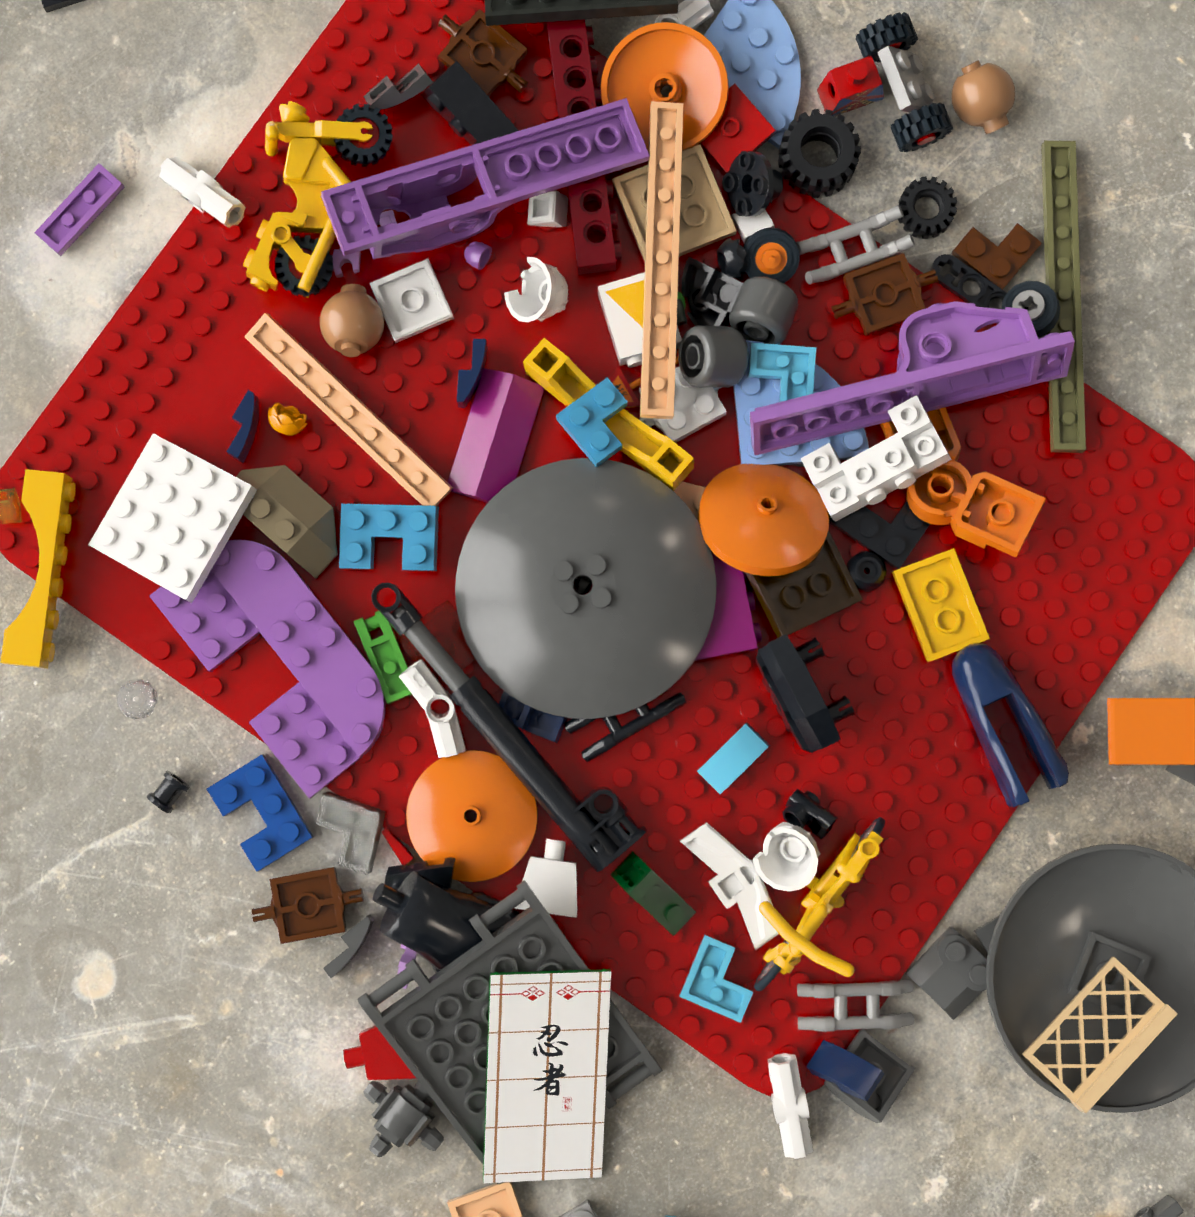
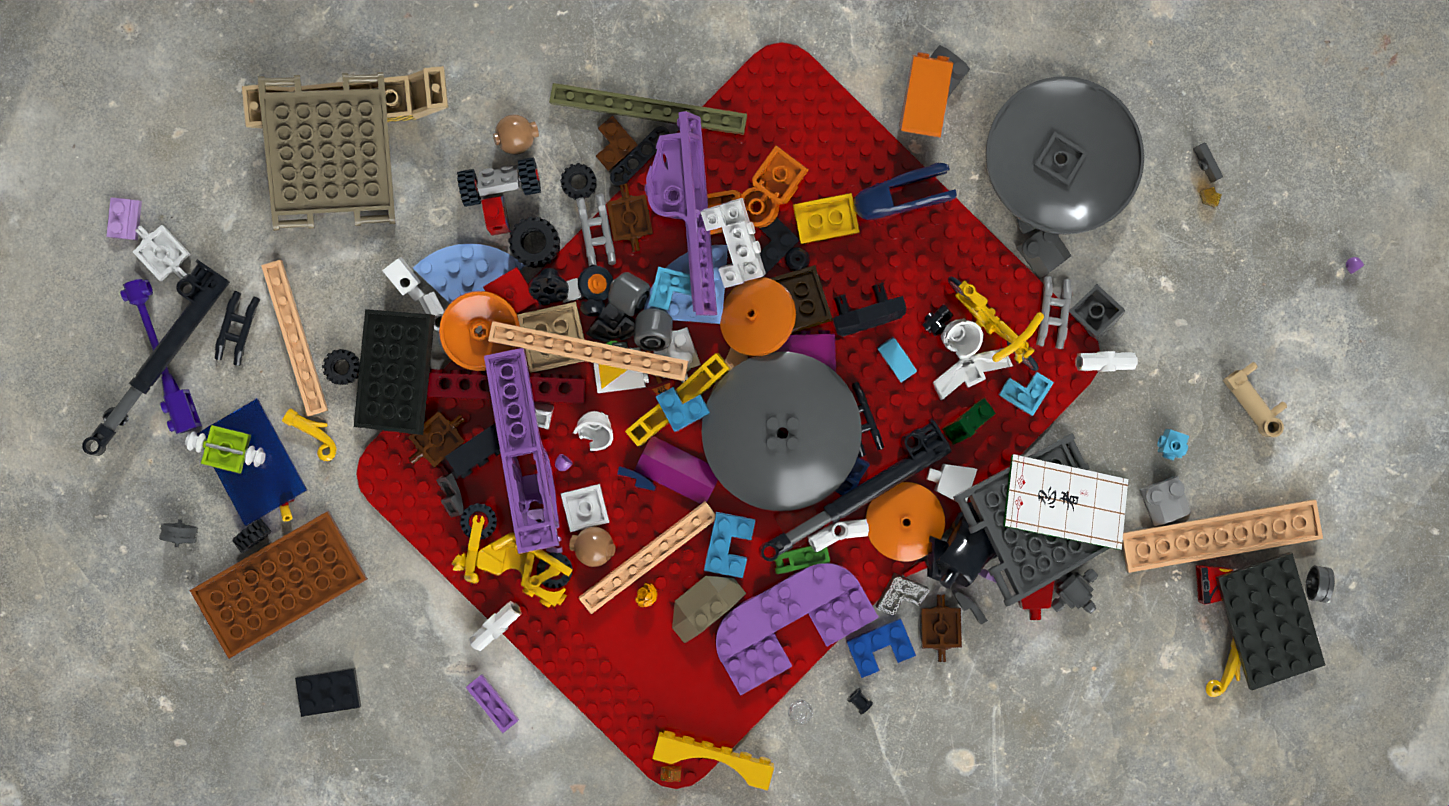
camera: 80 degrees left, 5 degrees up
(172, 517) = (696, 674): white plate -> none
(247, 416) = (641, 619): dark blue slope -> none
(846, 1070) = (1092, 325): dark blue slope -> none
(1044, 302) = (659, 124): black wheel -> none
(1121, 1055) = (1114, 167): tan fence -> none

